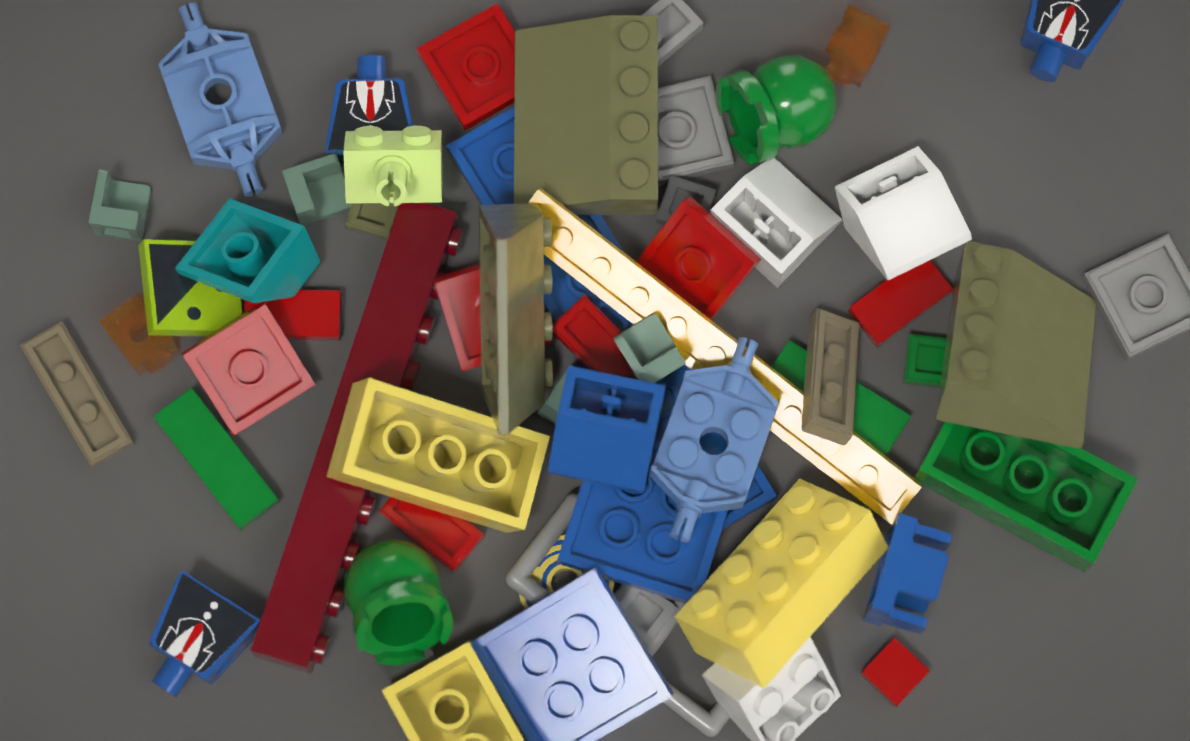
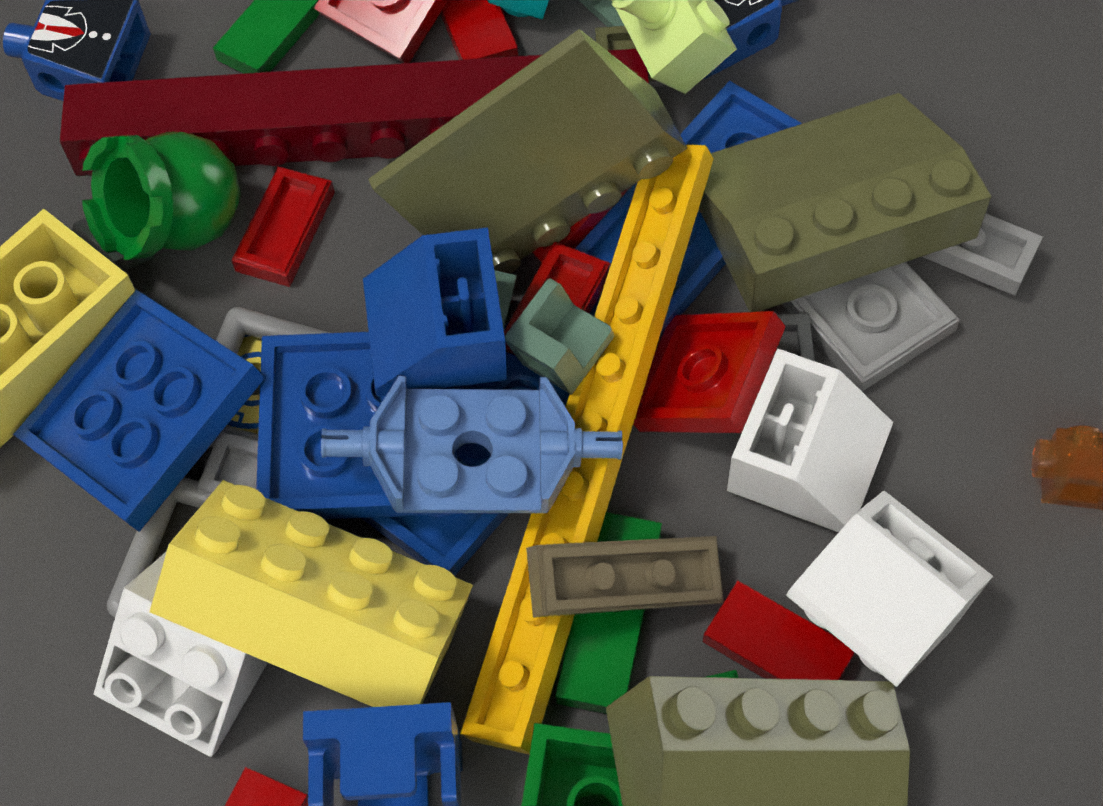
camera: 75 degrees right, 15 degrees down
(437, 456) = (332, 131): light yellow brick -> none
(474, 66) = (837, 72): red plate -> none
(778, 106) = (961, 393): green tile -> none

